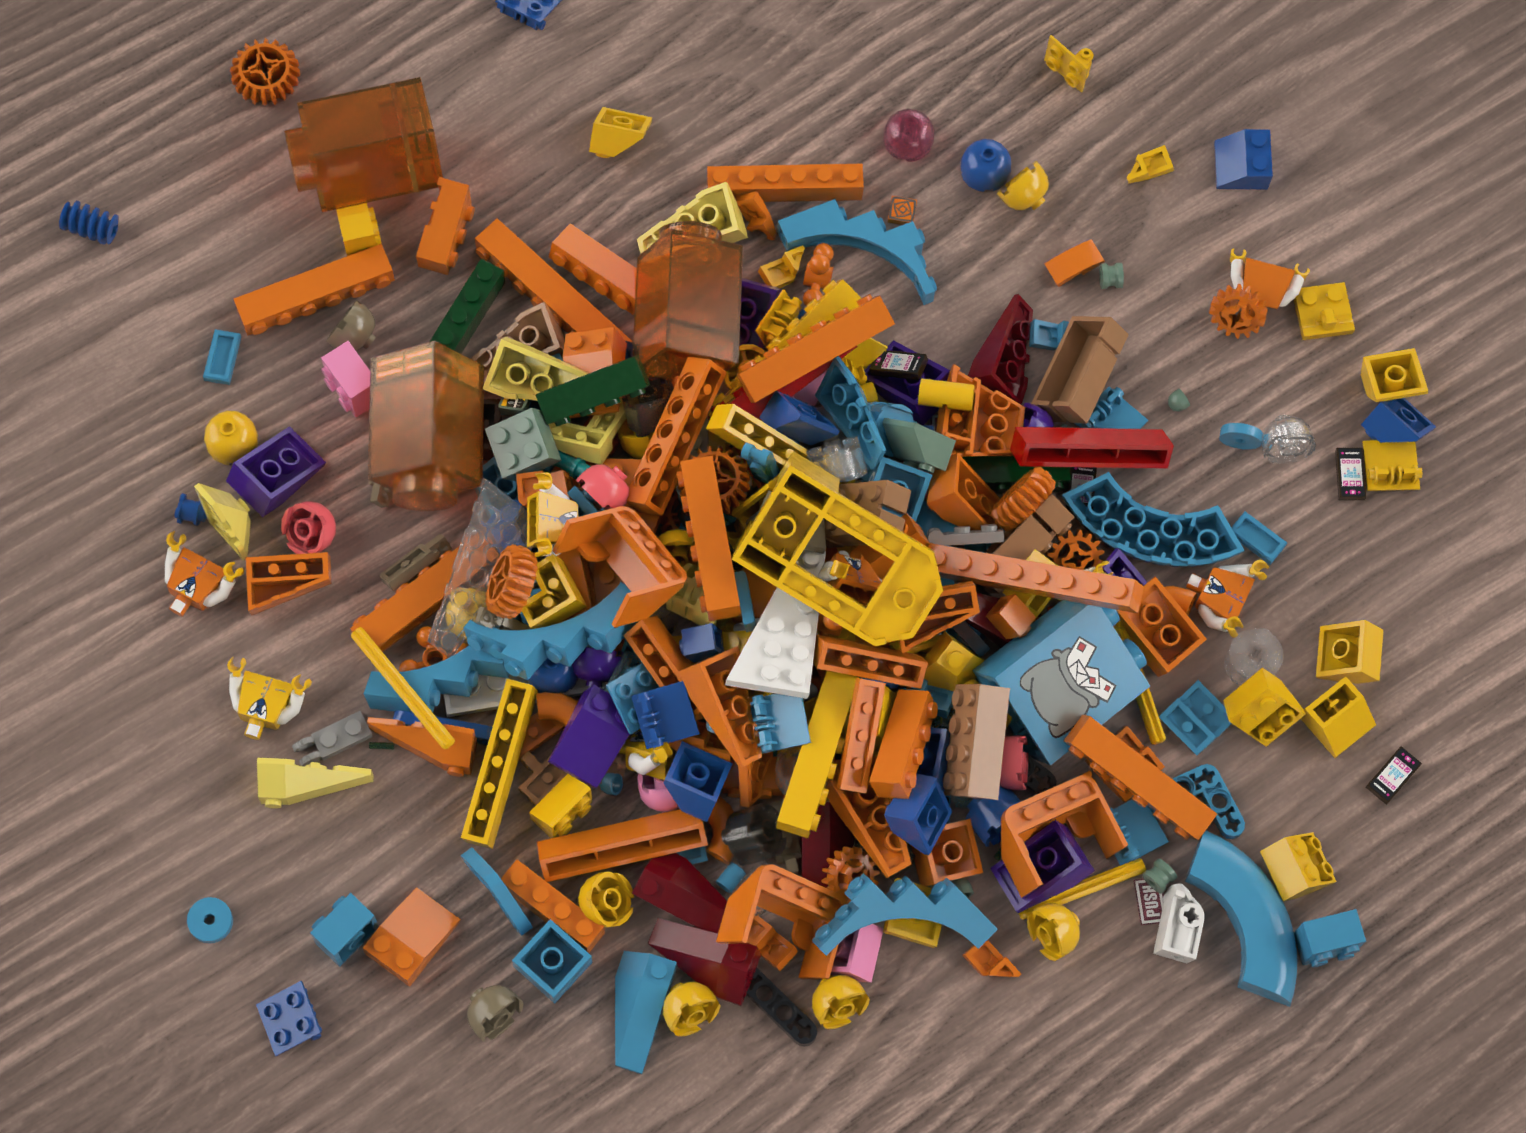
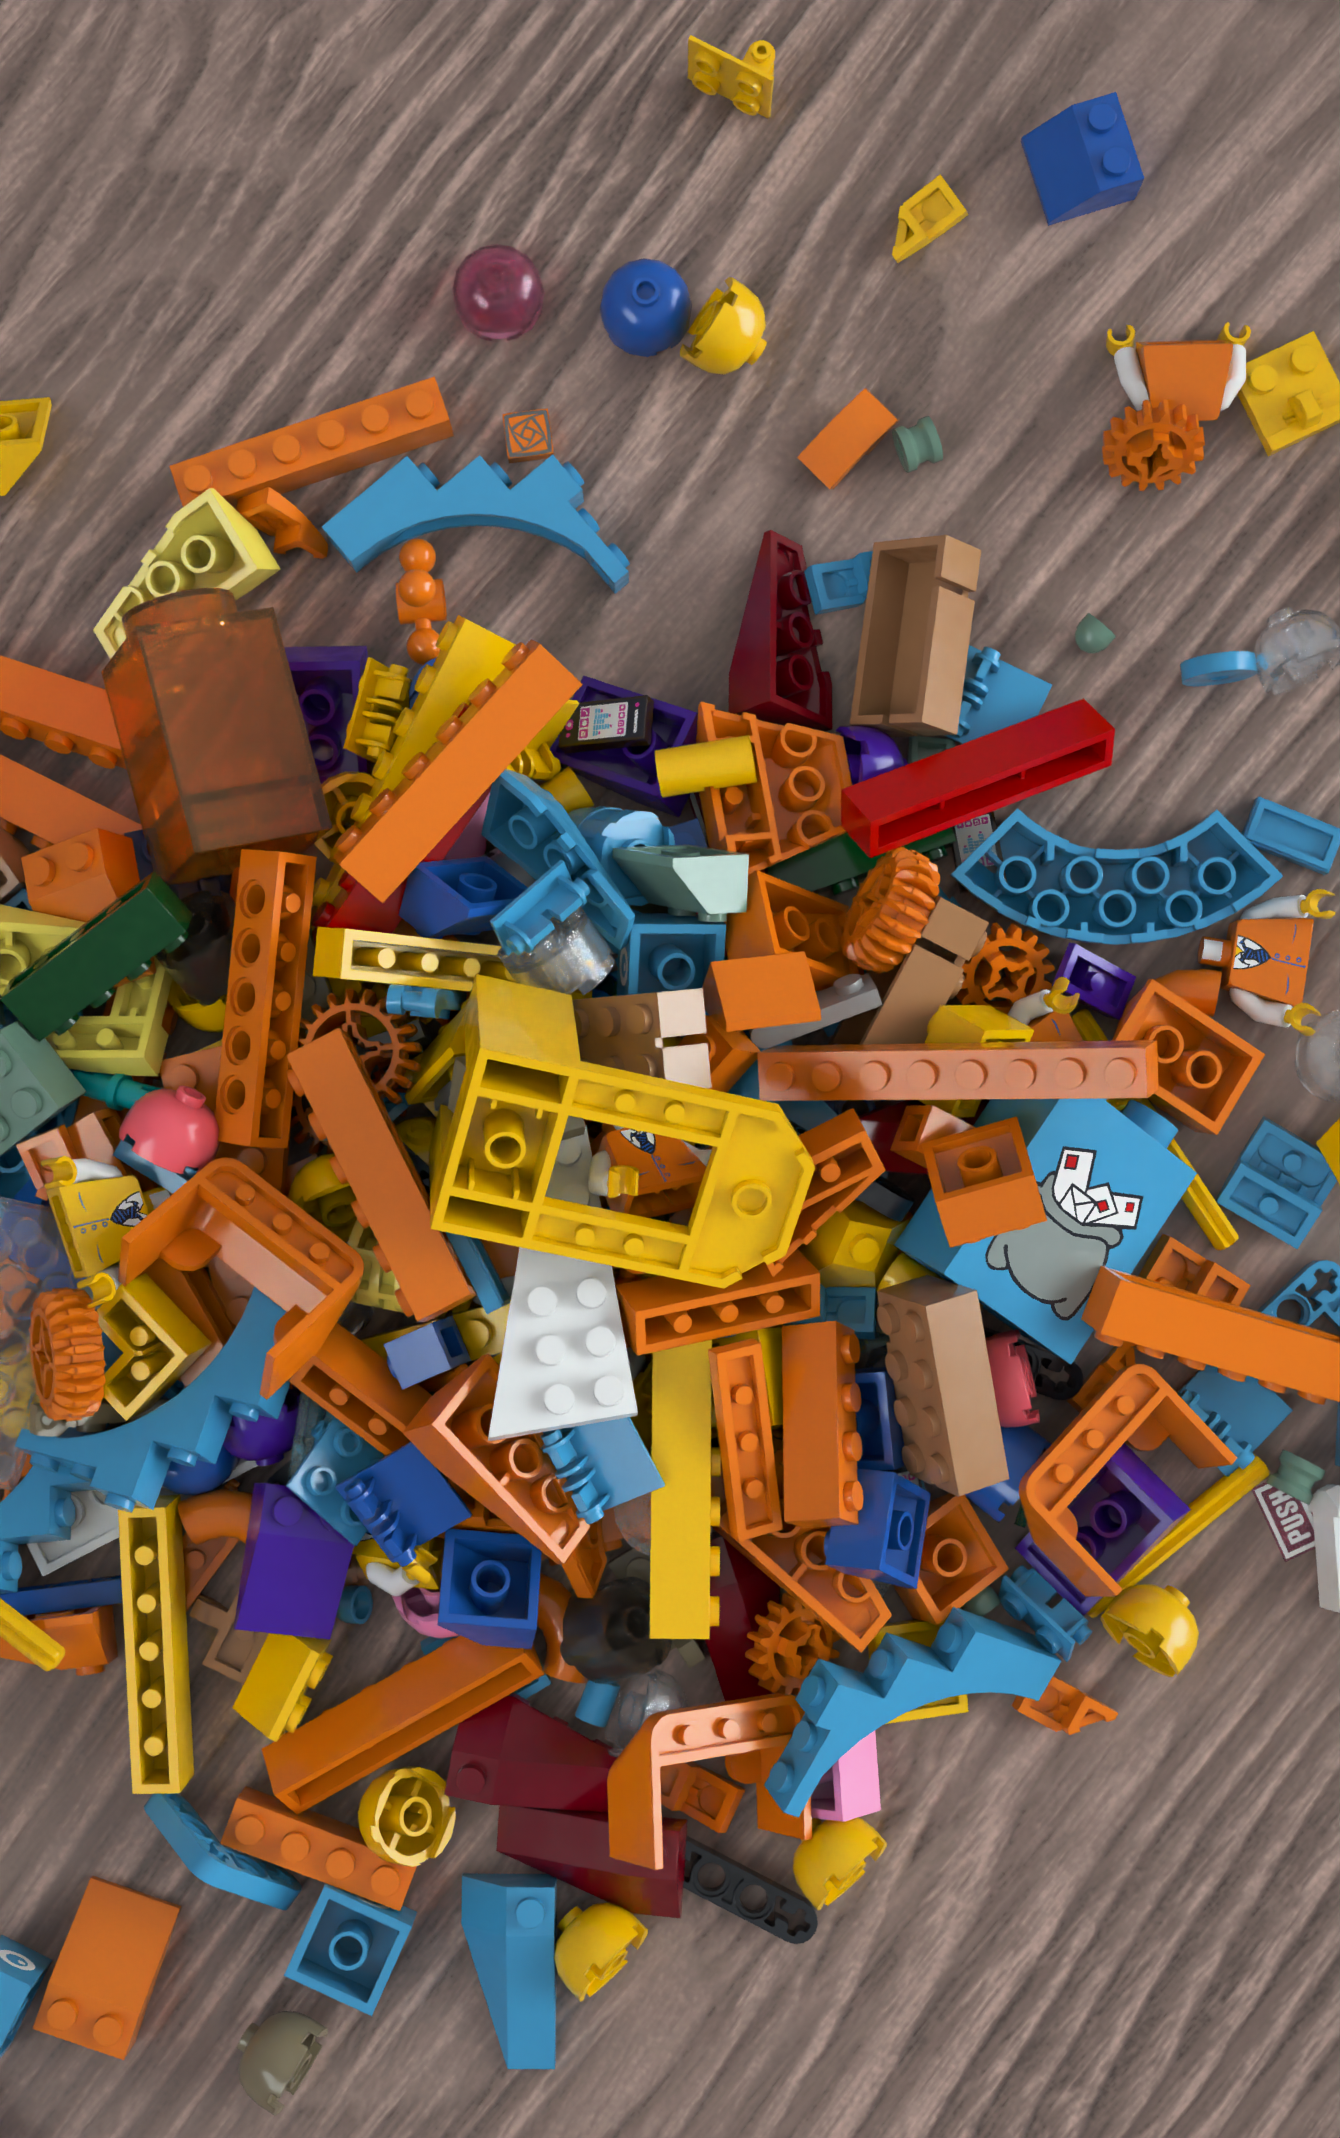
camera: 15 degrees left, 15 degrees up
(784, 270) = (358, 608): yellow slope -> none
(835, 430) = (528, 916): none -> dark azure hinge
(940, 507) = (761, 992): none -> orange slope
(988, 895) = (1056, 1629): none -> dark azure hinge
(1030, 635) = (983, 1182): none -> orange slope

